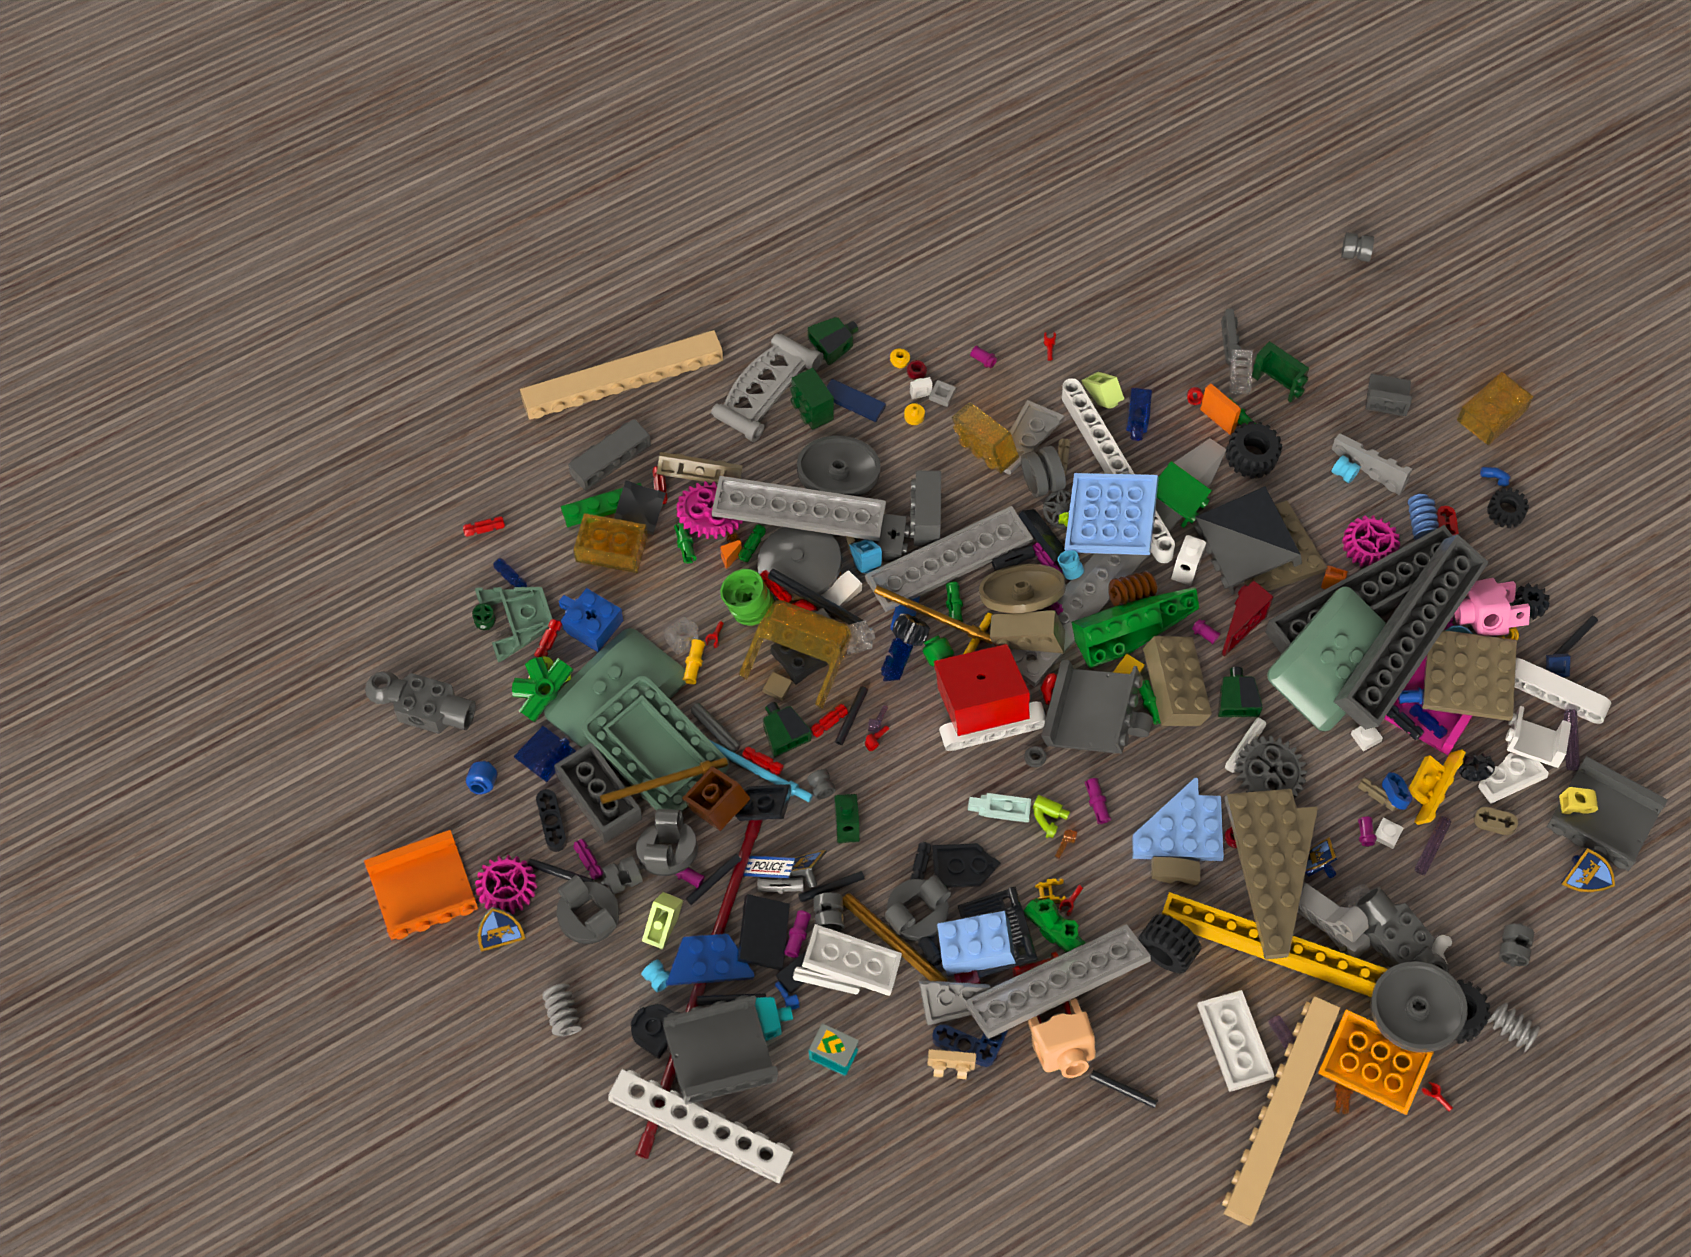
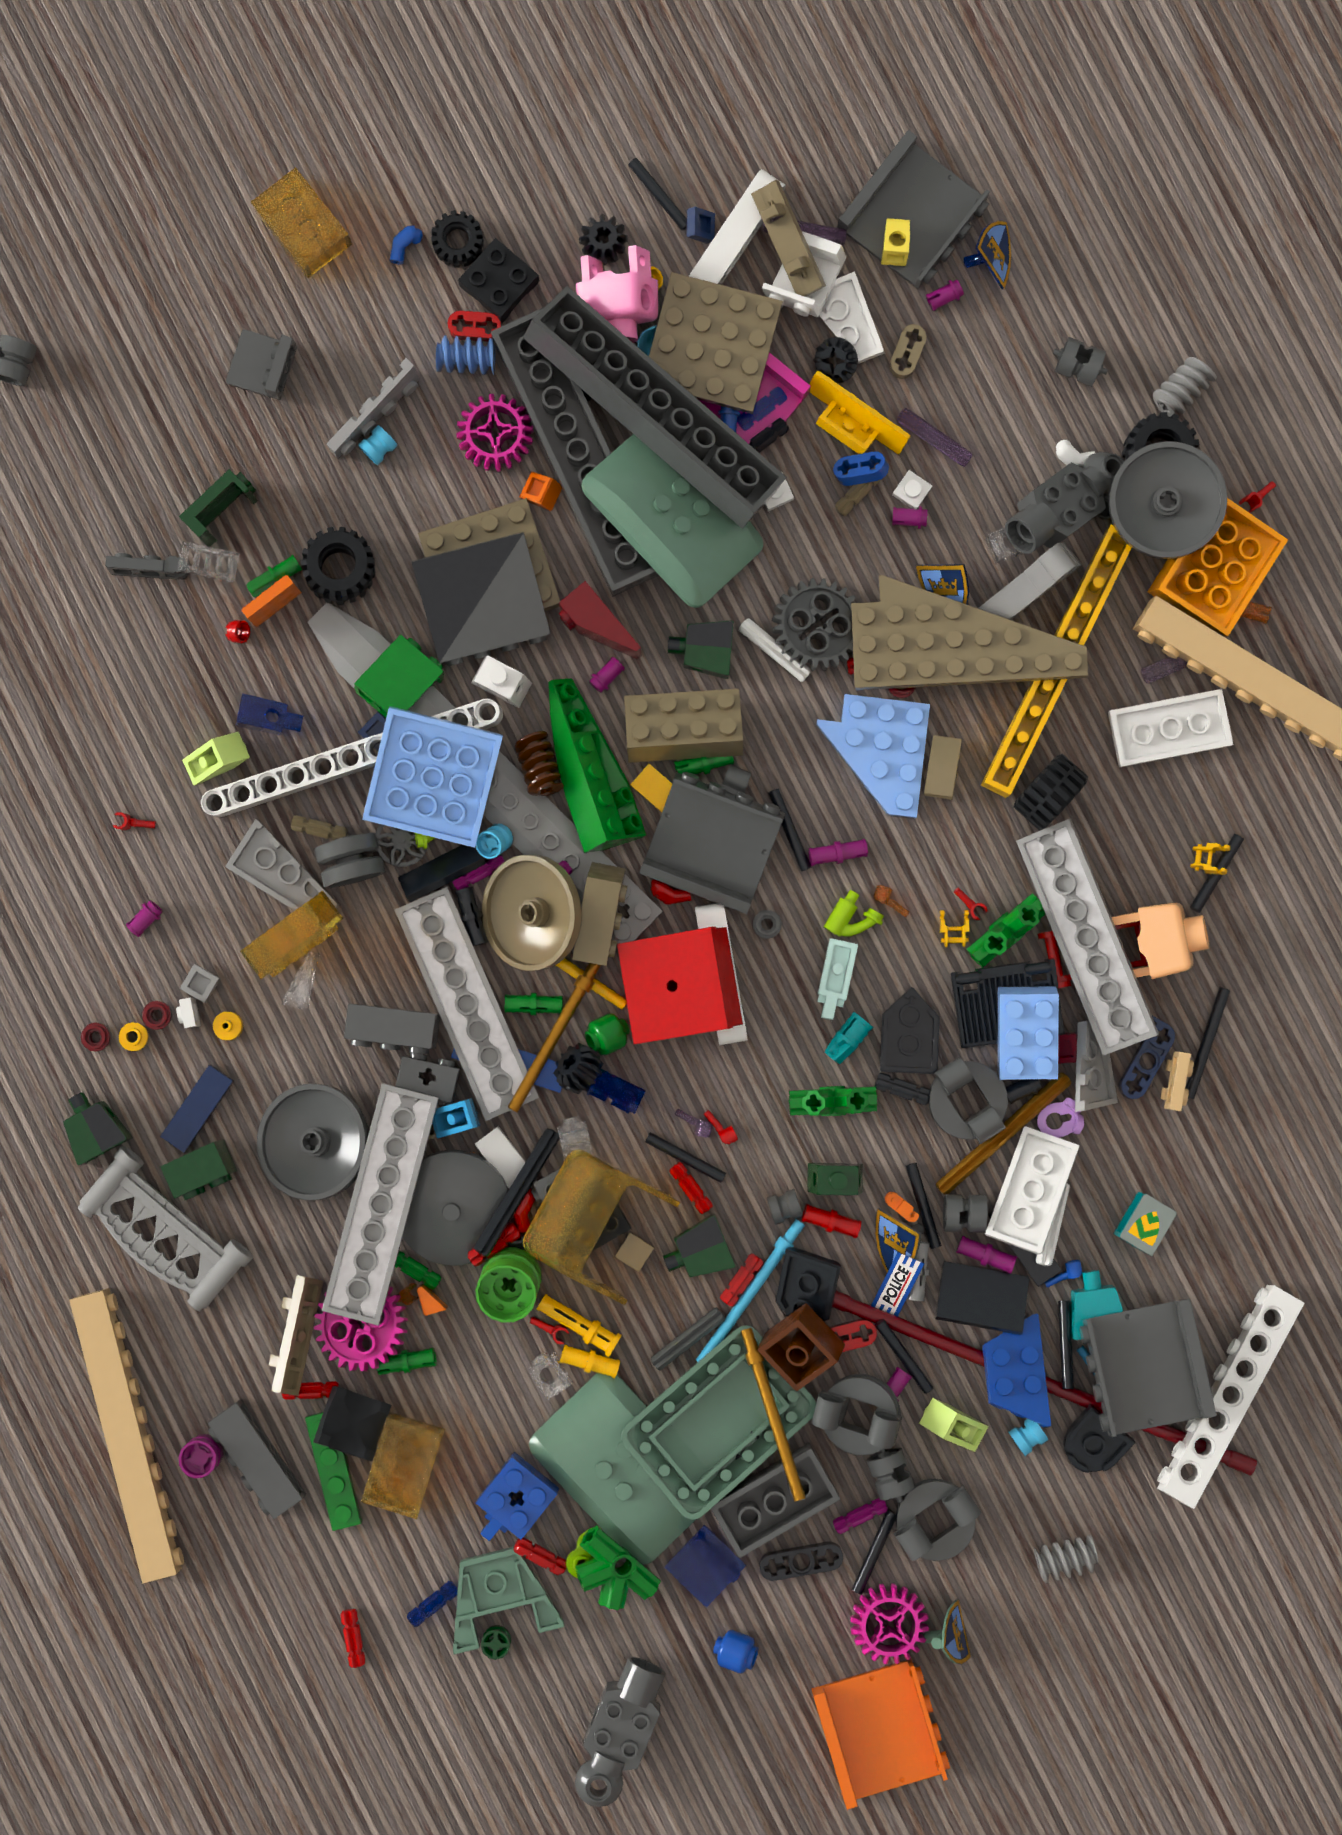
camera: 85 degrees left, 25 degrees up
(609, 417) = (200, 1456): none -> magenta wheel
(716, 659) = (594, 1328): none -> yellow pin
(721, 842) = (852, 1327): none -> red beam
(813, 819) = (831, 1221): none -> red pin
(829, 867) = (901, 1206): none -> orange piece
(897, 331) = (86, 1037): none -> dark red plate
(903, 988) = (1073, 1126): none -> lavender piece
(906, 811) = (833, 1101): none -> green piece
(951, 455) = (302, 984): none -> clear slope
(956, 820) = (848, 1038): none -> teal hinge
(984, 1092) = (1207, 1041): none -> black bar
(1110, 766) = (790, 831): none -> black piece
(1143, 1079) = (1210, 849): none -> yellow piece
(1486, 534) = (498, 279): none -> black brick
(1546, 843) = (945, 295): none -> magenta pin
(1561, 719) = (788, 239): none -> dark tan hinge

